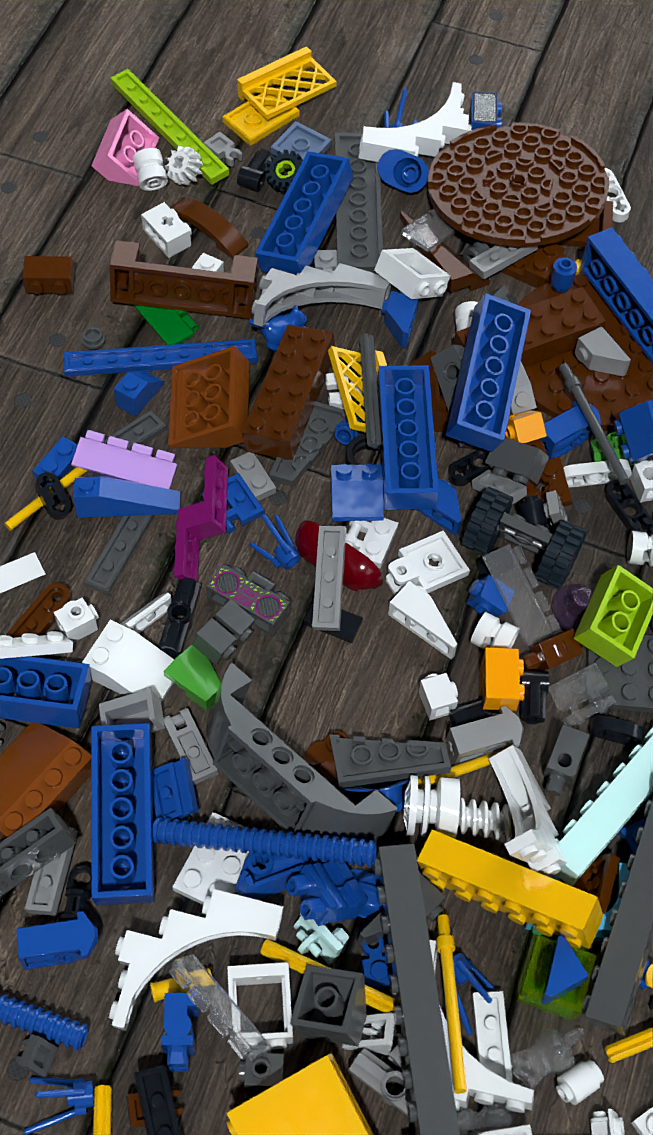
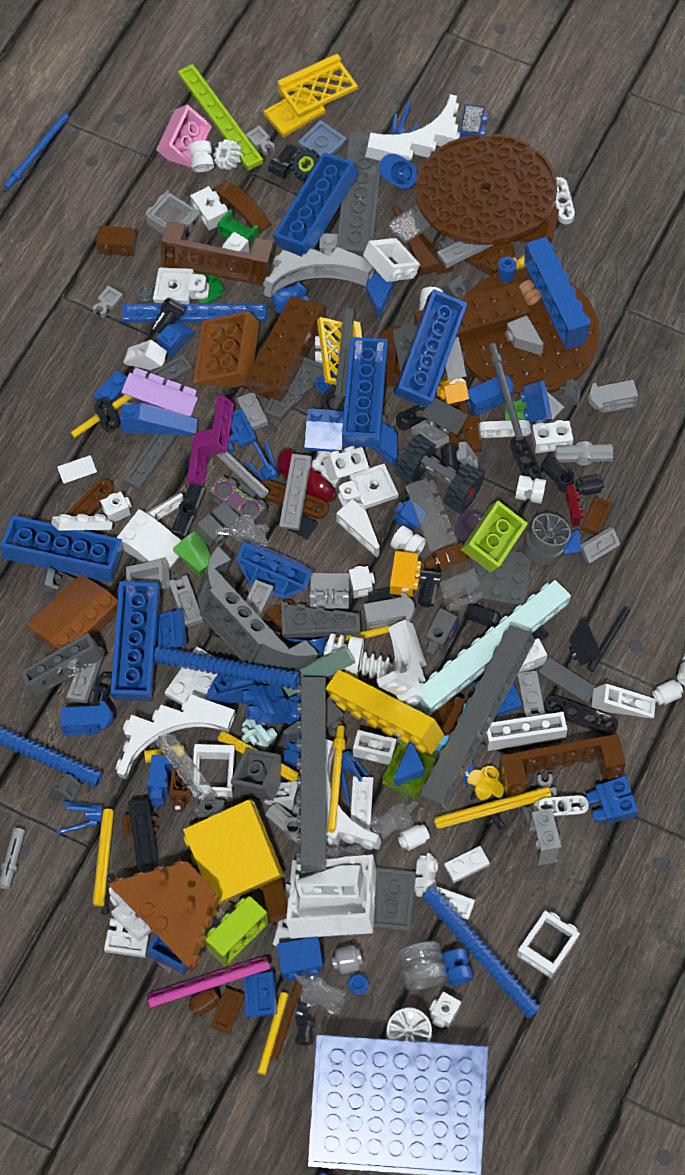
camera: 10 degrees right, 5 degrees up
(43, 348) = (108, 299): none -> light grey plate
(100, 414) = (145, 355): none -> white slope
(112, 228) = (172, 209): none -> light grey window
(128, 357) = (169, 313): none -> black piece
(147, 325) = (186, 288): none -> white plate
(192, 249) = (228, 225): none -> green panel
(212, 1053) = (177, 796): none -> reddish brown piece
(253, 560) = (245, 475): none -> light grey axle
(266, 637) = (246, 531): none -> clear animal
(298, 730) = (260, 597): none -> light grey panel
(303, 586) = (311, 503): none -> reddish brown plate
(311, 691) = (274, 569): none -> blue wedge
(392, 534) = (346, 465): none -> white brick
(394, 713) = (329, 590): none -> light grey hinge
(410, 825) = (324, 666): none -> sand green tile
(499, 944) = (374, 747): none -> white brick
(601, 300) = (530, 293): none -> nougat wheel

